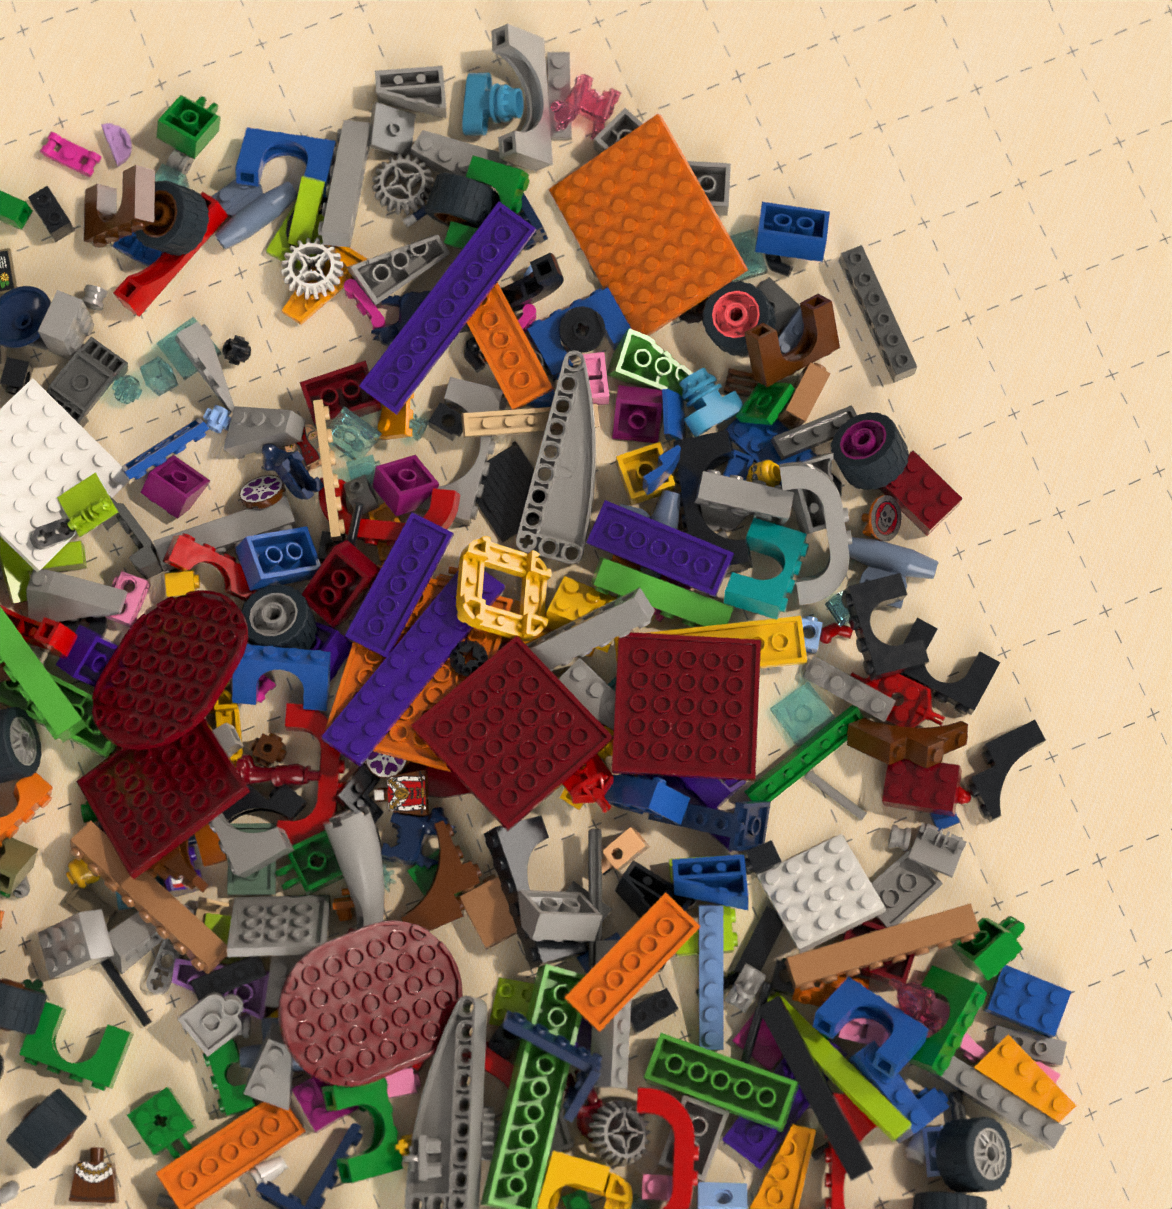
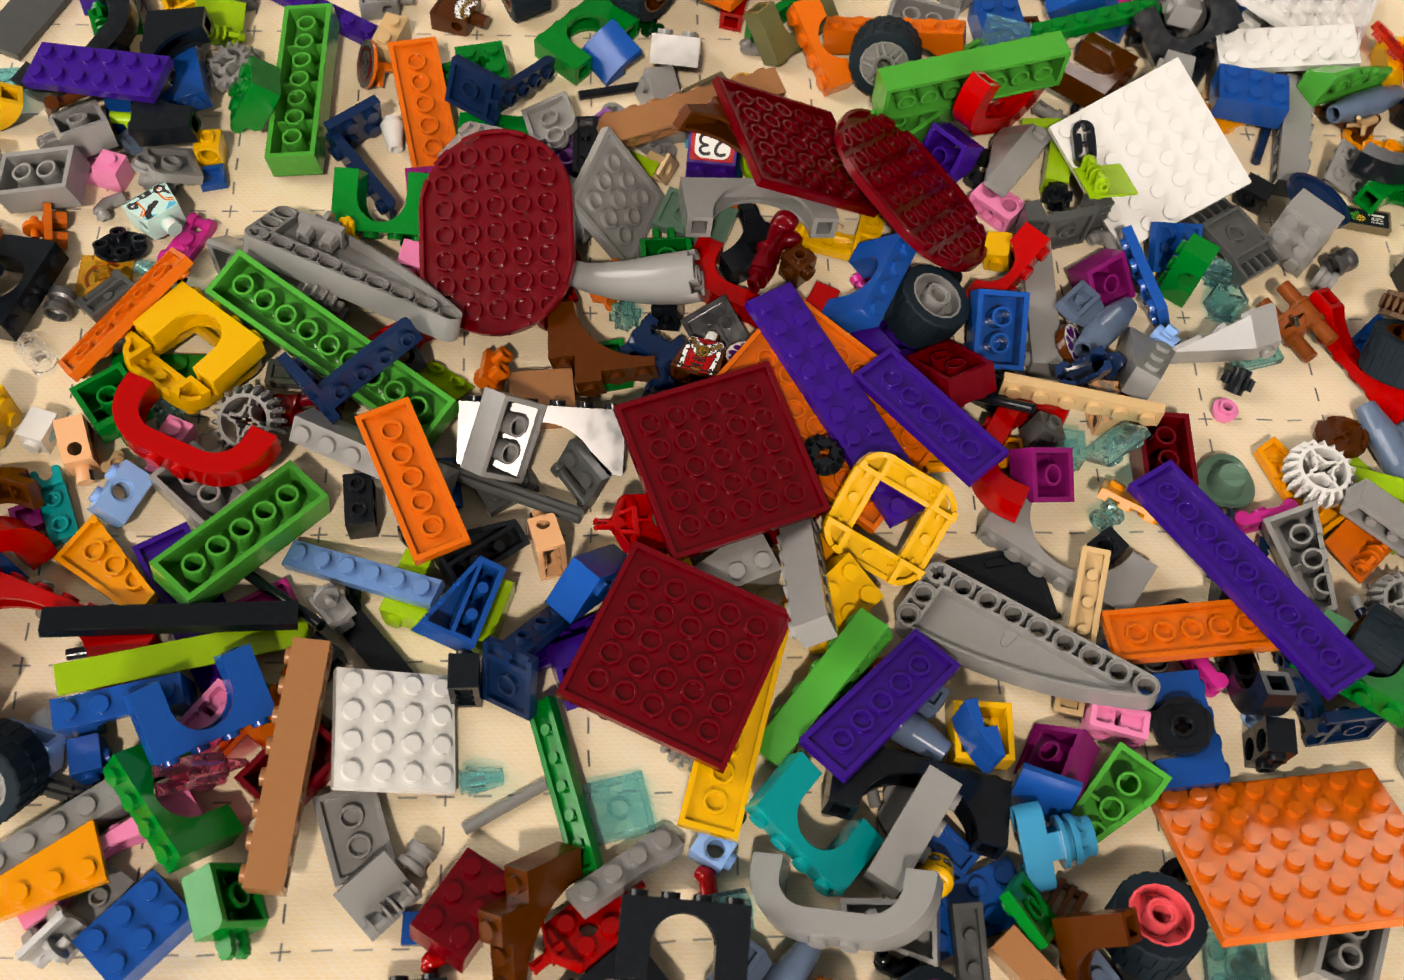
camera: 105 degrees right, 15 degrees down
(67, 285) = (1342, 261): none -> flat silver wheel
(90, 1012) = (611, 52): none -> blue slope
(94, 548) = (1057, 196): none -> black gear
(115, 431) = (1165, 239): none -> blue slope
(125, 491) = (1102, 238): none -> light grey arm
(145, 312) = (1310, 320): none -> dark orange pin
(148, 414) = (1186, 269): none -> green arch
(211, 1092) = (488, 94): none -> dark blue bracket
(225, 480) = (1100, 323): none -> sand blue plate
(258, 257) = (1344, 434): none -> reddish brown tile
(272, 360) = (1222, 415): none -> bright pink plate
(341, 340) = (1226, 481): none -> sand green hat
(368, 229) = (1356, 549): none -> orange hinge
(488, 962) = (493, 369): none -> orange hips
(552, 849) = (585, 470): none -> dark grey plate
(571, 263) = (1269, 744): none -> black brick
(827, 822) = (479, 779): none -> clear light blue cone
(1061, 1049) = (50, 941): none -> light grey hips

